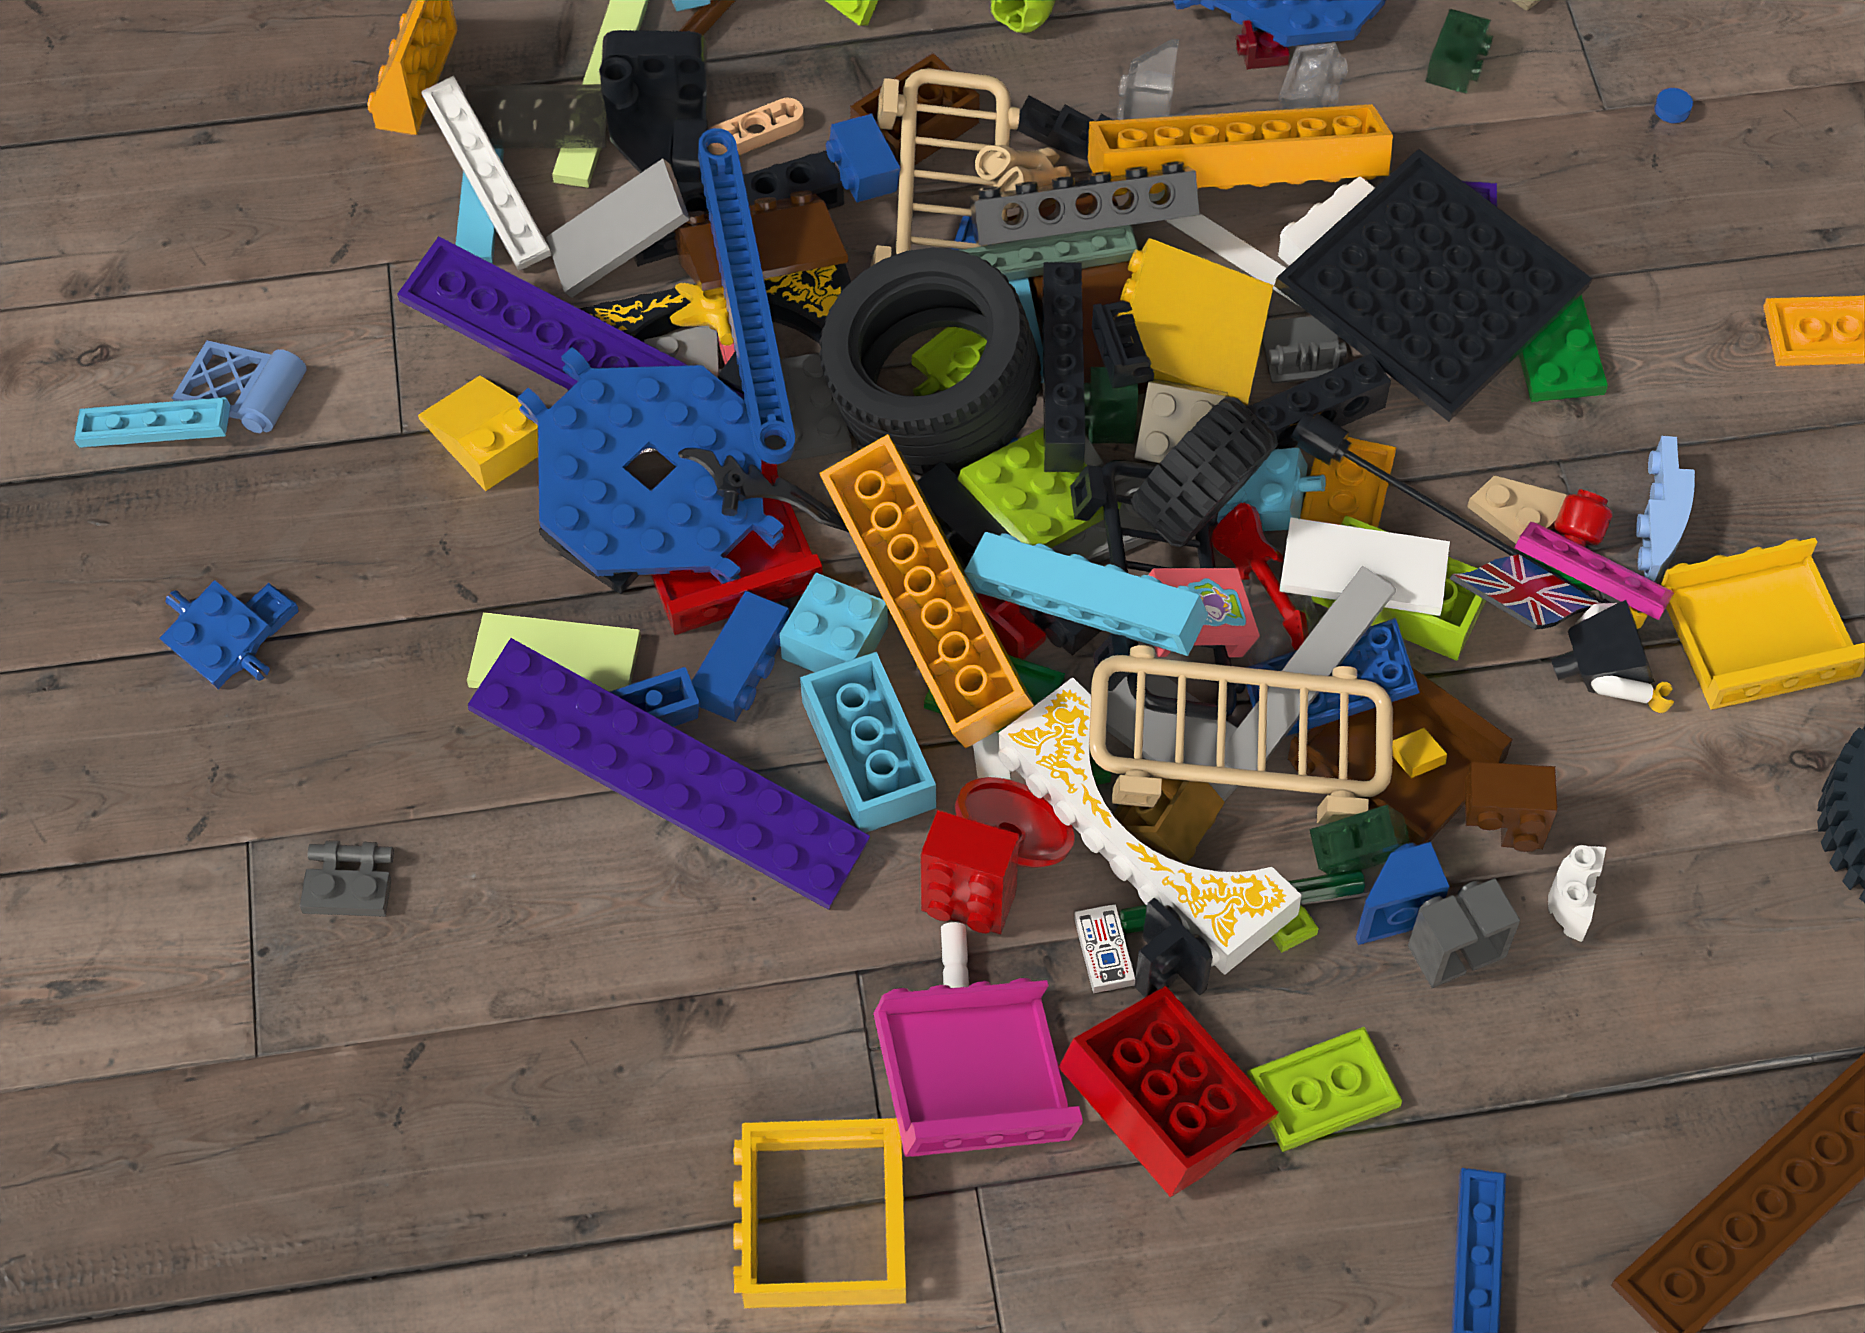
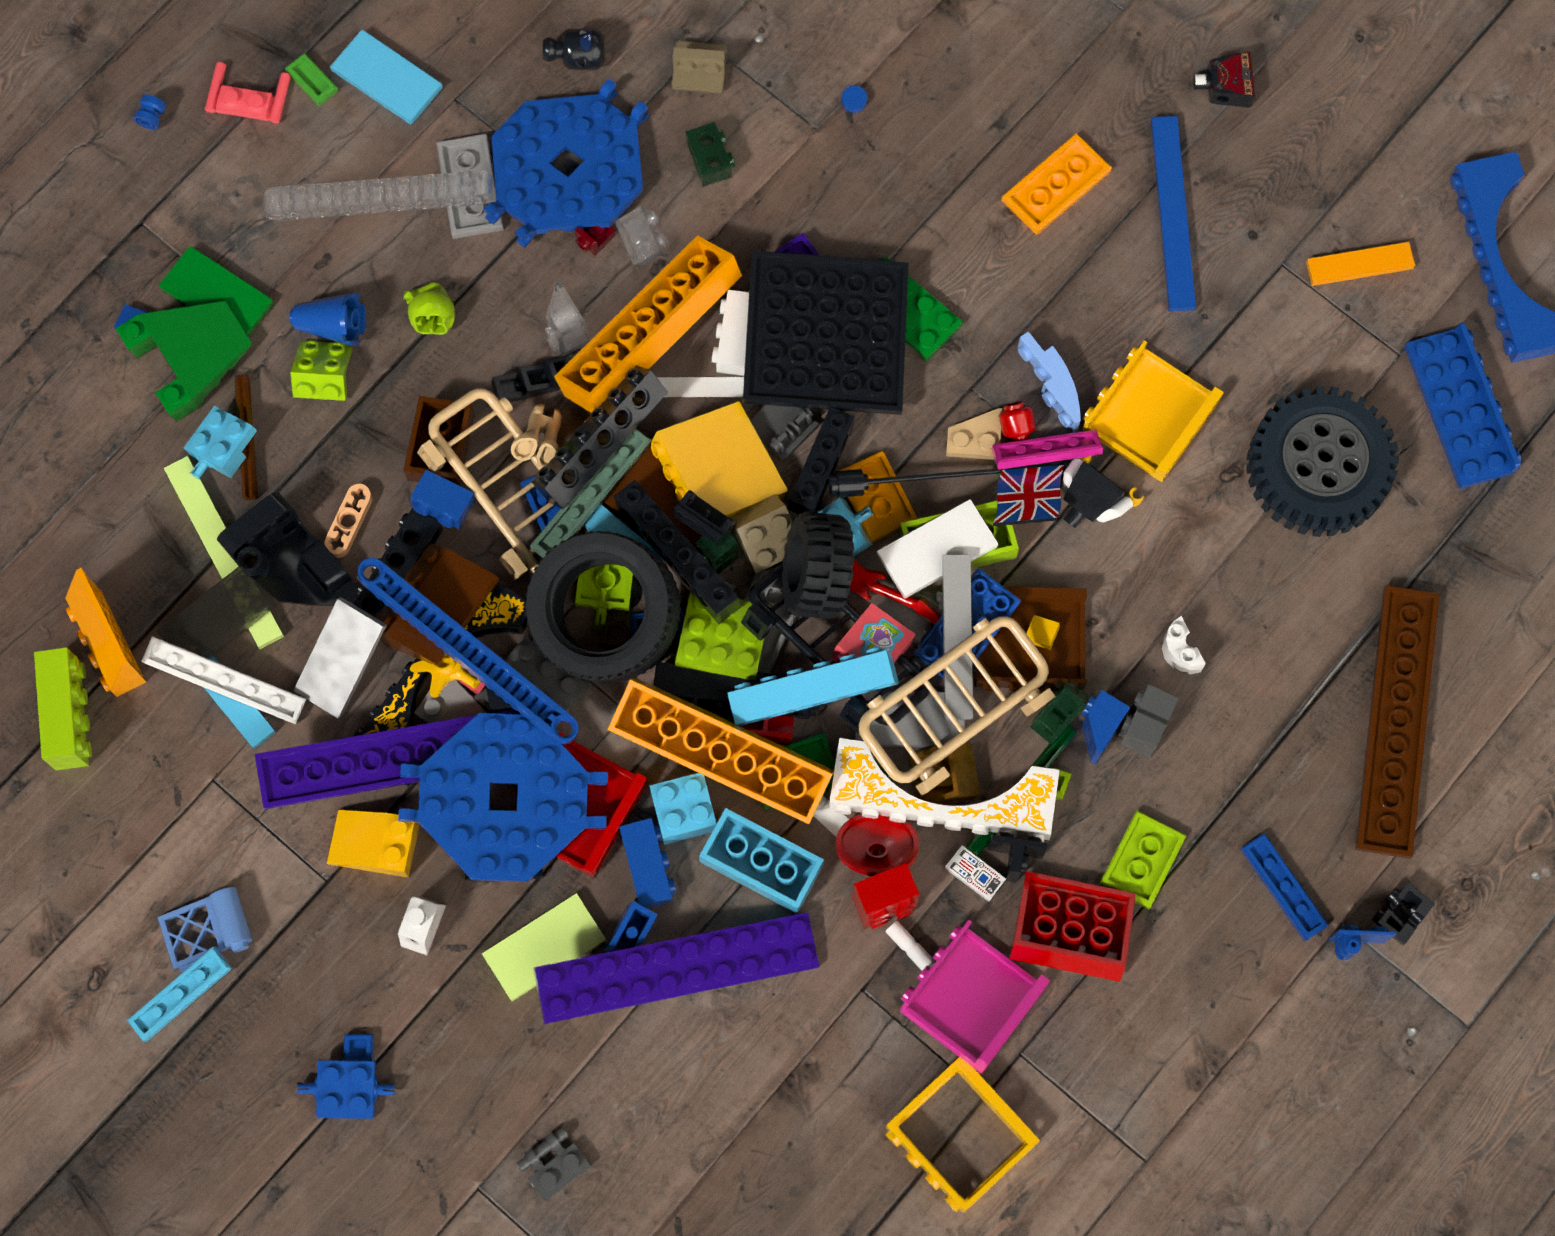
camera: 40 degrees left, 15 degrees up
(307, 88) = (62, 709): none -> lime brick
(448, 532) = (420, 924): none -> white torso
(737, 486) = (564, 769): black piece -> none
(1514, 799) = (1117, 628): reddish brown brick -> none

